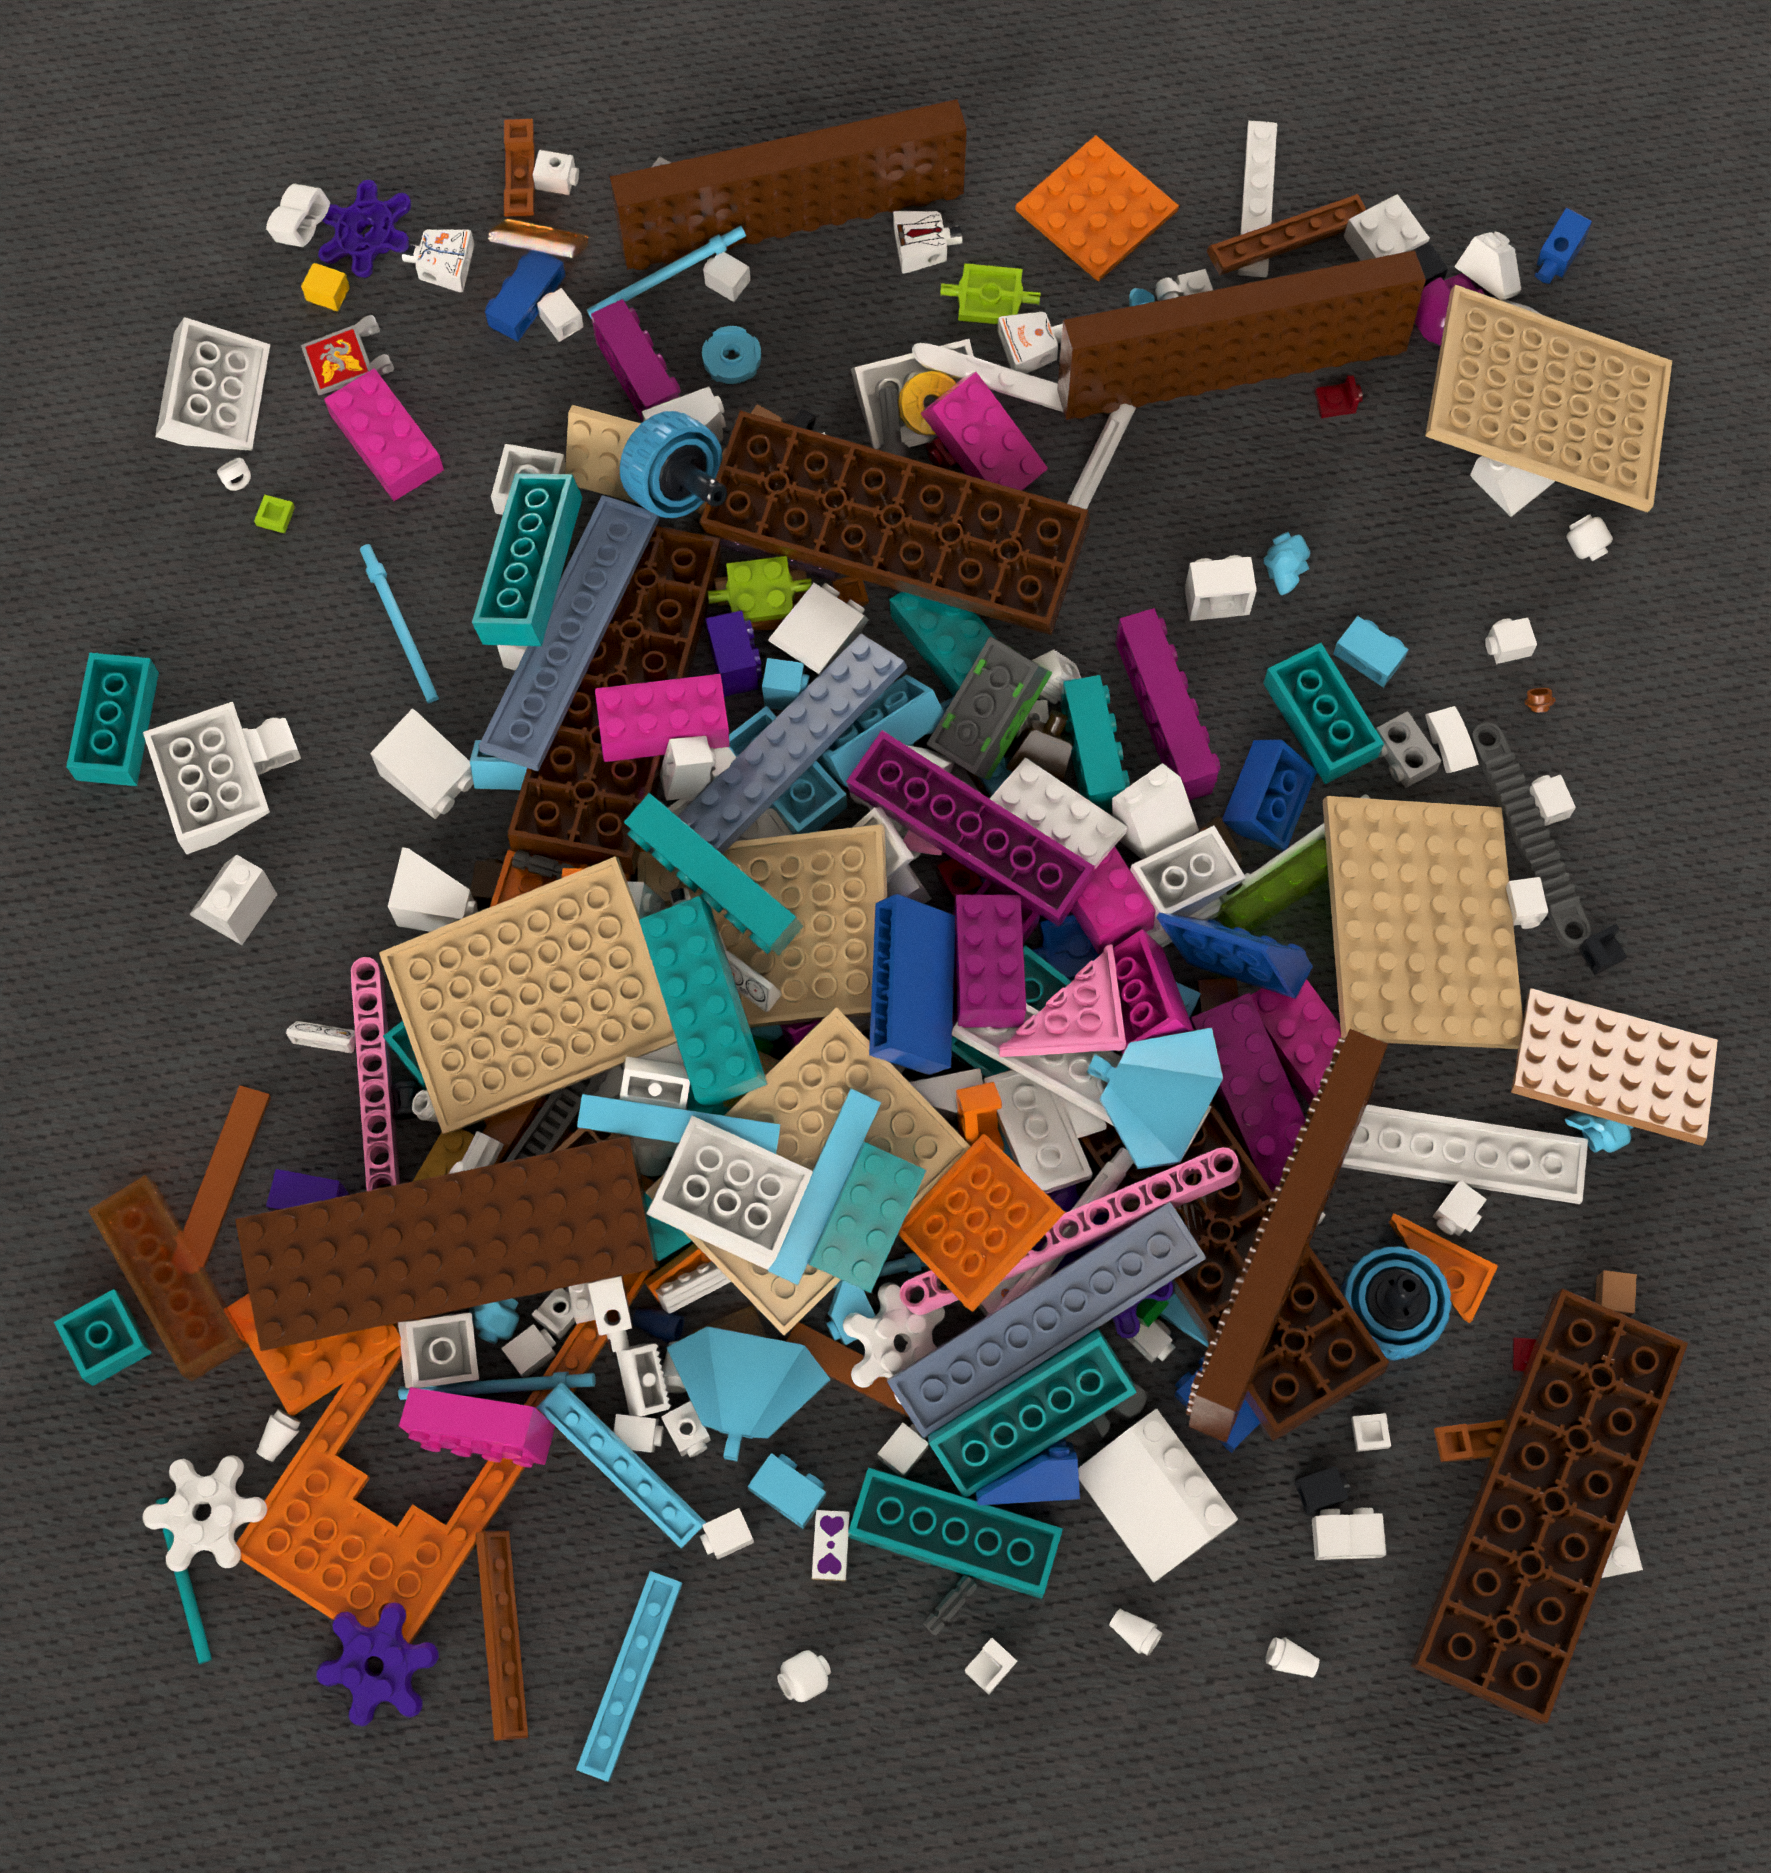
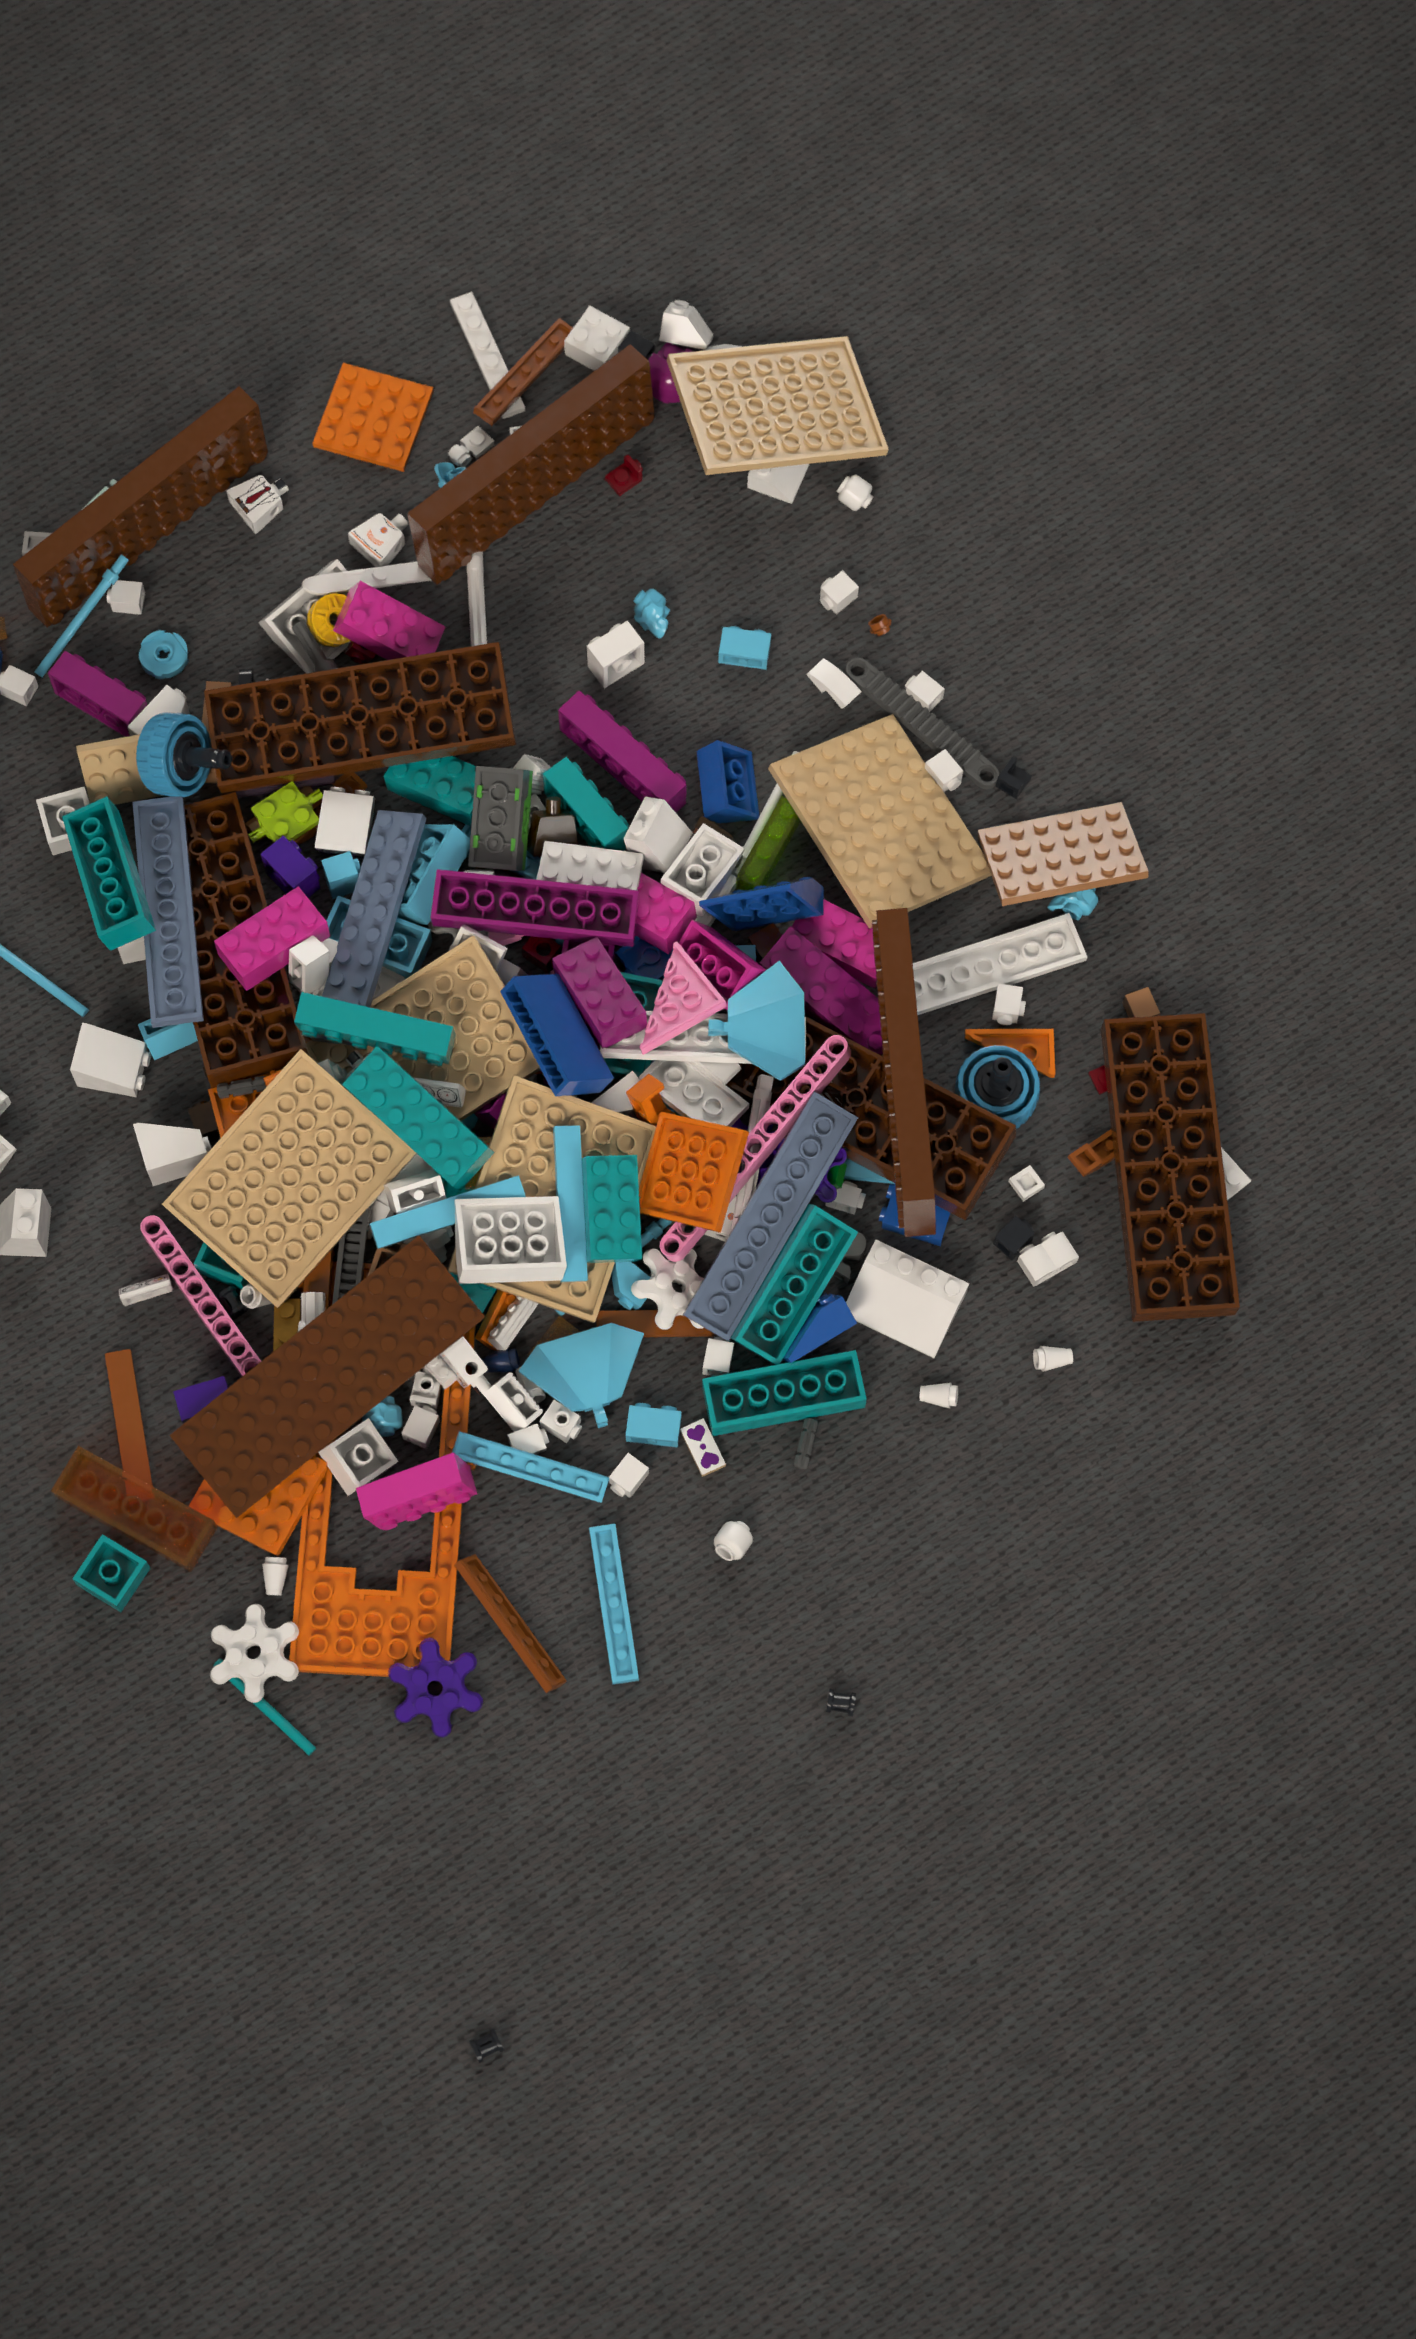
camera: 30 degrees left, 0 degrees up
(511, 1385) = (422, 1454): medium azure bar -> none
(989, 293) = (329, 518): lime plate -> none
(990, 1666) = (855, 1467): white panel -> none
(1323, 713) = (735, 707): teal brick -> none
(1413, 747) = (810, 701): light grey brick -> none
(1562, 245) = (727, 289): blue torso -> none

